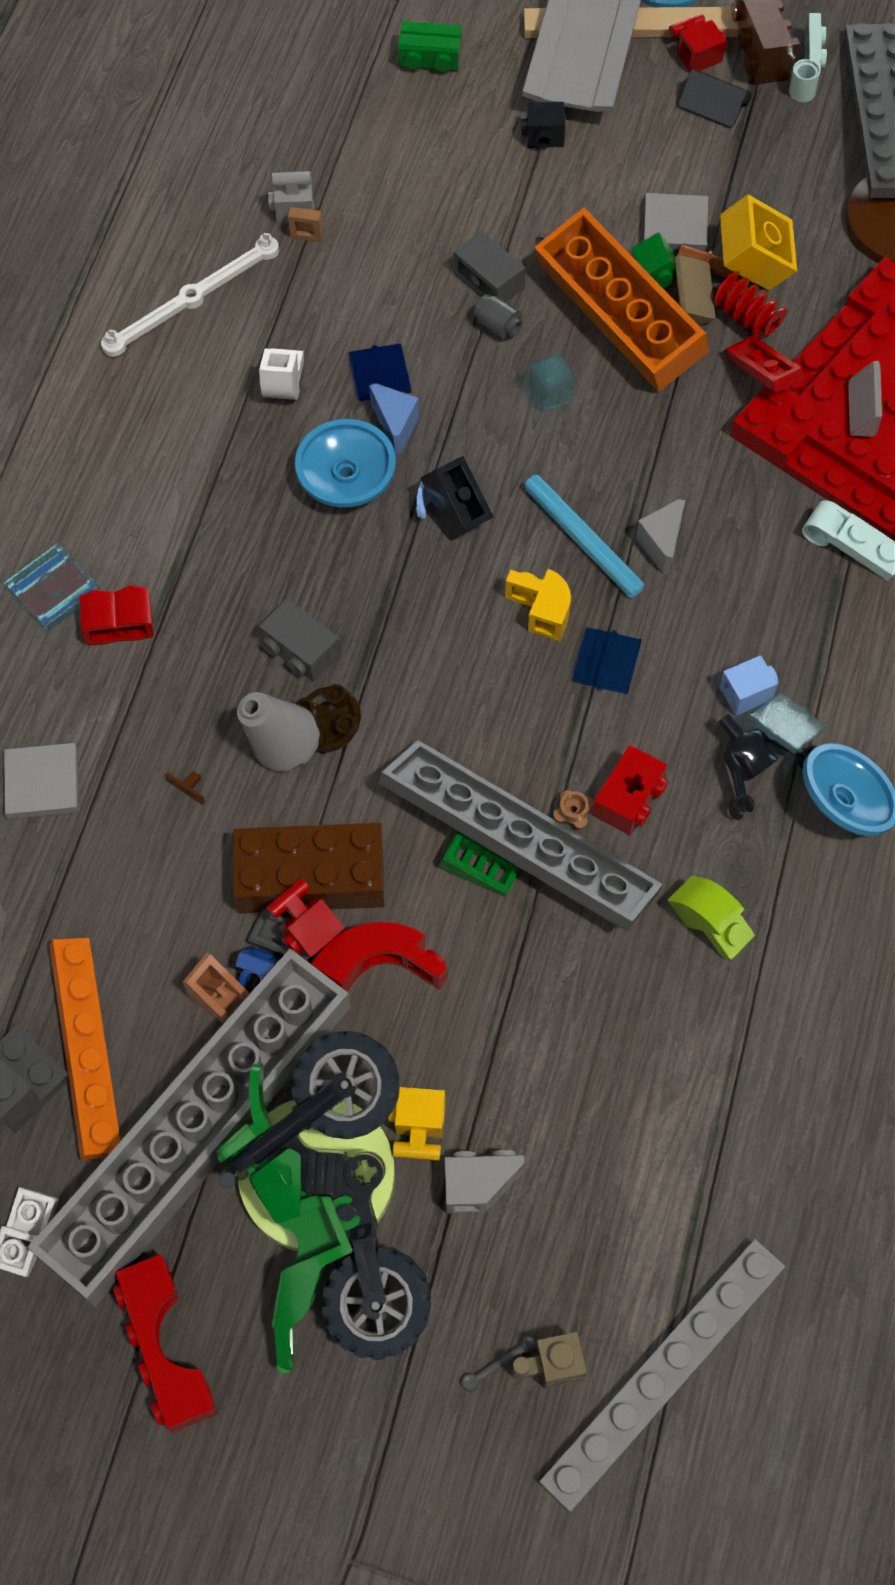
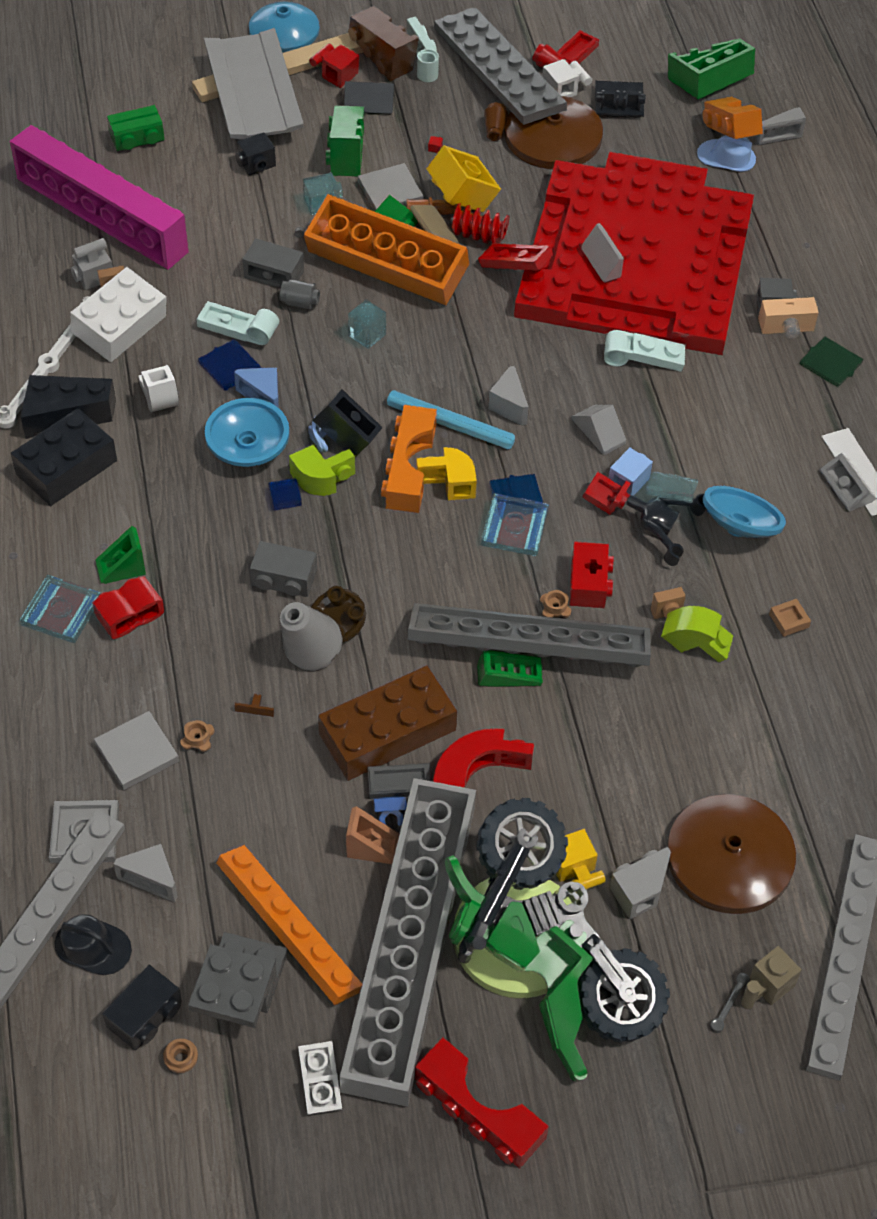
camera: 30 degrees left, 10 degrees down
(107, 783) = (196, 728): none -> medium nougat plate
(141, 557) = (122, 559): none -> green slope
(143, 414) = (64, 457): none -> black brick
(177, 351) = (55, 397): none -> black wedge
(287, 267) = (118, 314): none -> white brick
(309, 925) = (416, 755): red brick -> none
(342, 118) = (100, 196): none -> dark pink brick
(353, 551) = (285, 494): none -> clear blue tile
(400, 545) = (318, 474): none -> lime brick
(411, 326) = (238, 324): none -> light aqua plate
(532, 535) = (405, 483): none -> orange arch
(583, 693) = (515, 524): none -> clear light blue tile
(594, 196) = (316, 189): none -> clear light blue brick
(594, 1227) = (731, 854): none -> reddish brown dish
(655, 143) = (345, 141): none -> green wedge
(700, 863) = (667, 601): none -> medium nougat plate
(706, 698) = (606, 493): none -> red bracket
(749, 615) = (601, 427): none -> light grey slope
(759, 184) = (435, 144): none -> red piece
(834, 942) = (790, 617): none -> medium nougat plate
(846, 177) = (495, 120): none -> reddish brown cone

